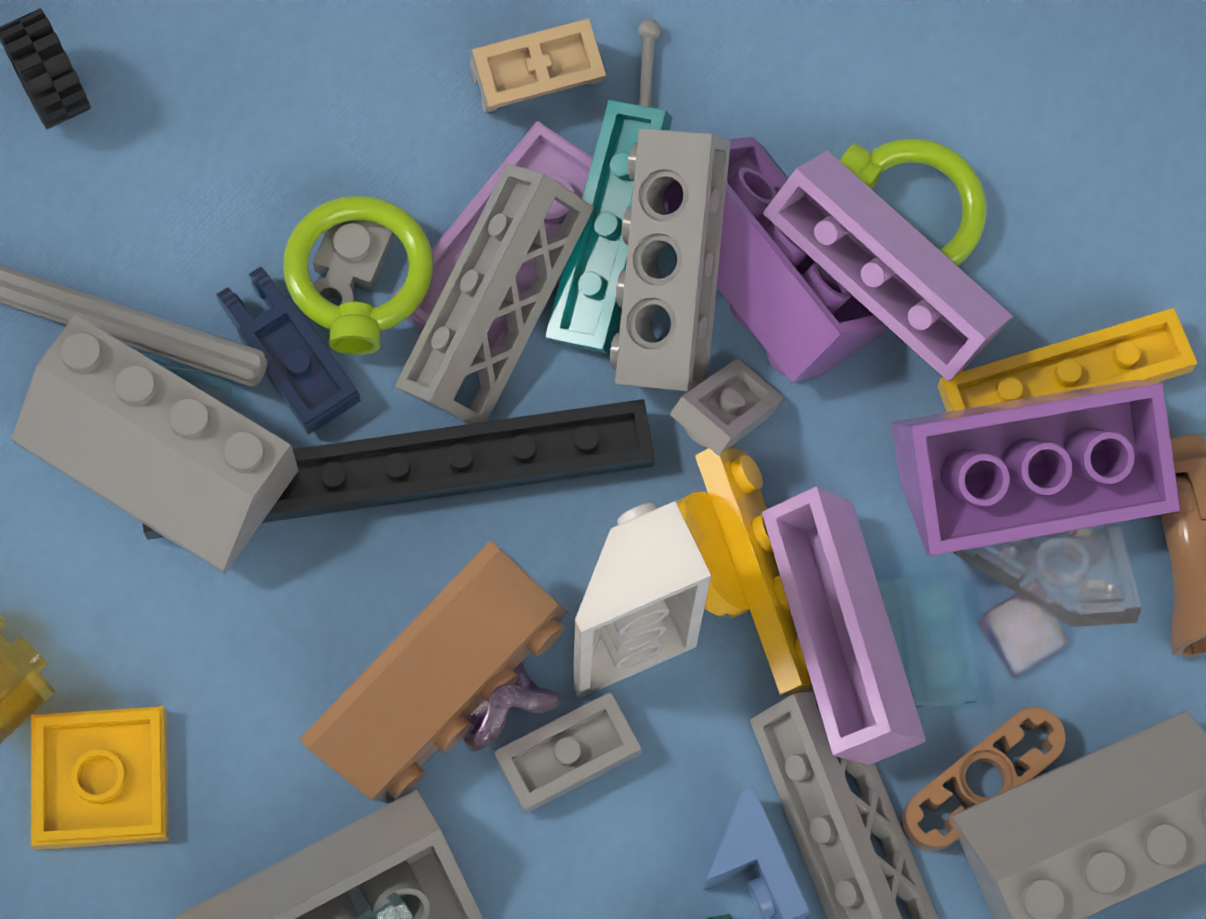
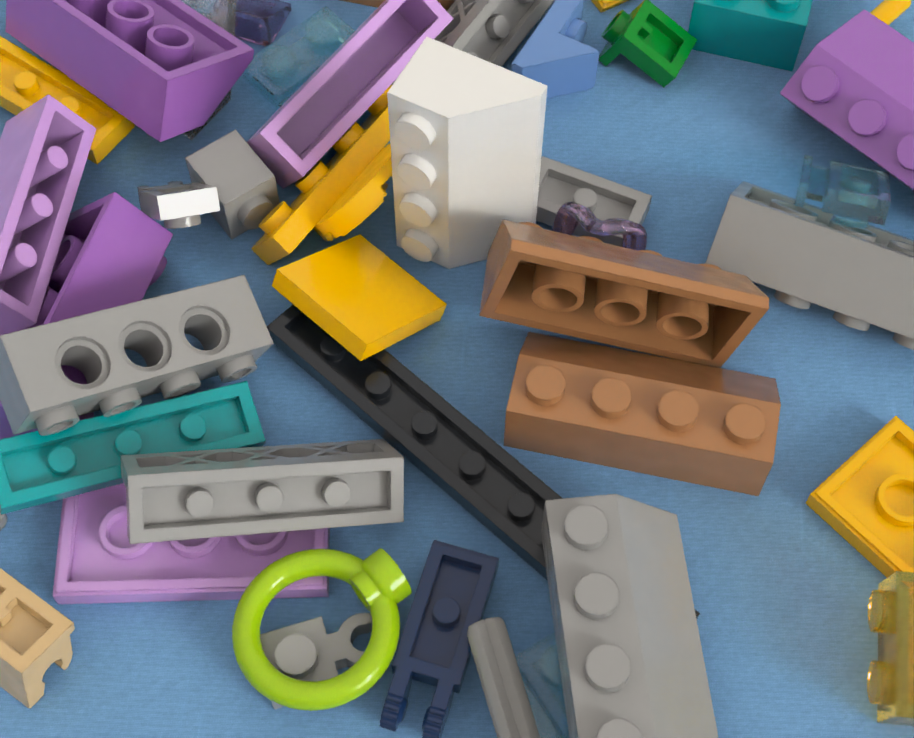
camera: 125 degrees left, 10 degrees down
(324, 632) = (643, 413): none -> medium nougat slope
(604, 474) = (359, 296): none -> yellow tile
(726, 406) = (242, 248): light grey plate -> none
(813, 460) = (242, 180): none -> light grey brick
(820, 400) = (178, 203): none -> plate

